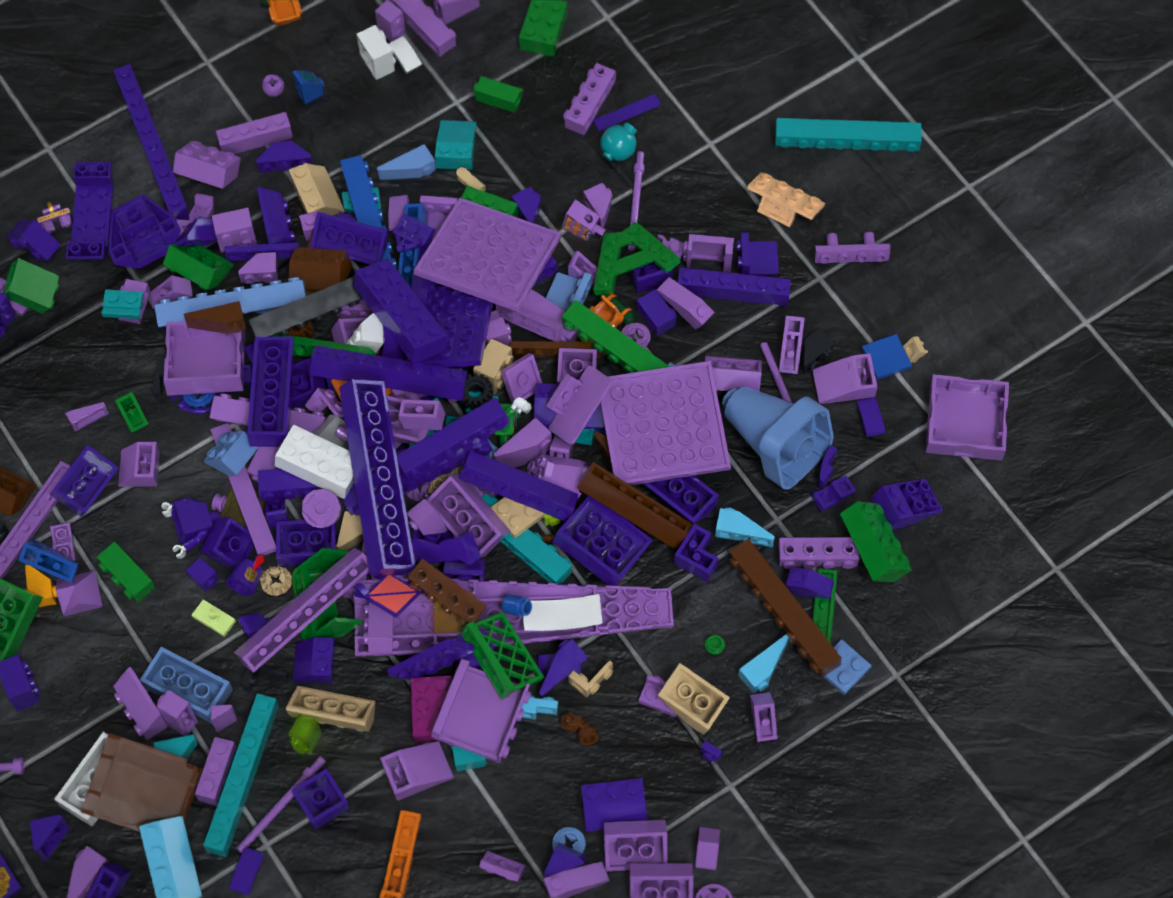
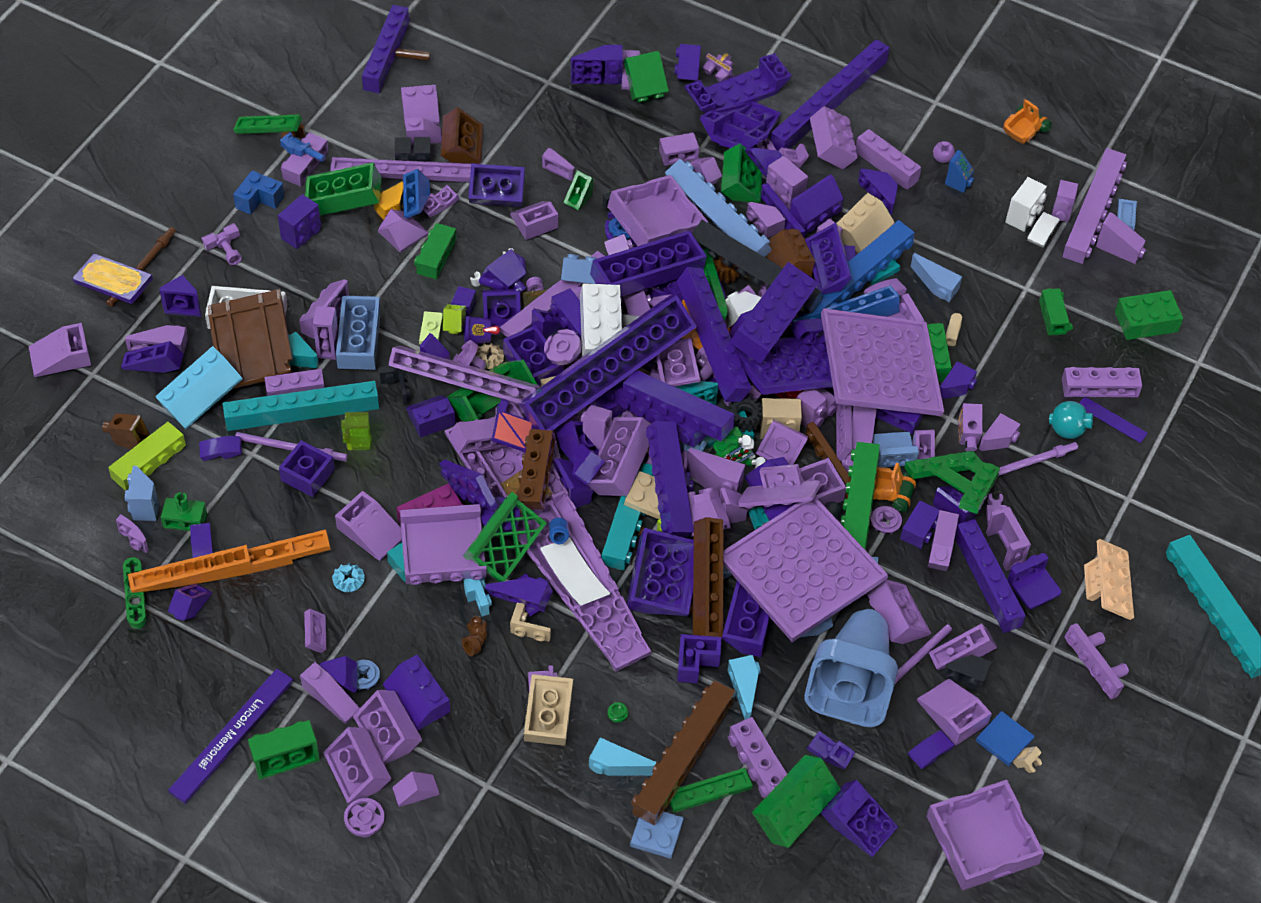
camera: 60 degrees right, 10 degrees down
(122, 304) = (668, 139): teal plate -> none
(220, 590) = (454, 318): none -> lime brick
(221, 319) = (693, 203): reddish brown slope -> none
(222, 716) = (341, 367): medium lavender slope -> none
(273, 599) = (468, 356): none -> medium lavender tile
(332, 708) = (391, 440): tan slope -> none
(412, 234) = (863, 299): dark purple slope -> none
(421, 414) = (682, 367): medium lavender brick -> none
(455, 144) = (981, 303): teal slope -> none
(455, 822) = (350, 584): none -> medium azure gear
(710, 752) = (507, 751): dark purple plate -> none
(763, 716) = (567, 781): medium lavender slope -> none
(809, 583) = (721, 762): dark purple slope -> none
(826, 469) = (845, 731): dark purple slope -> none

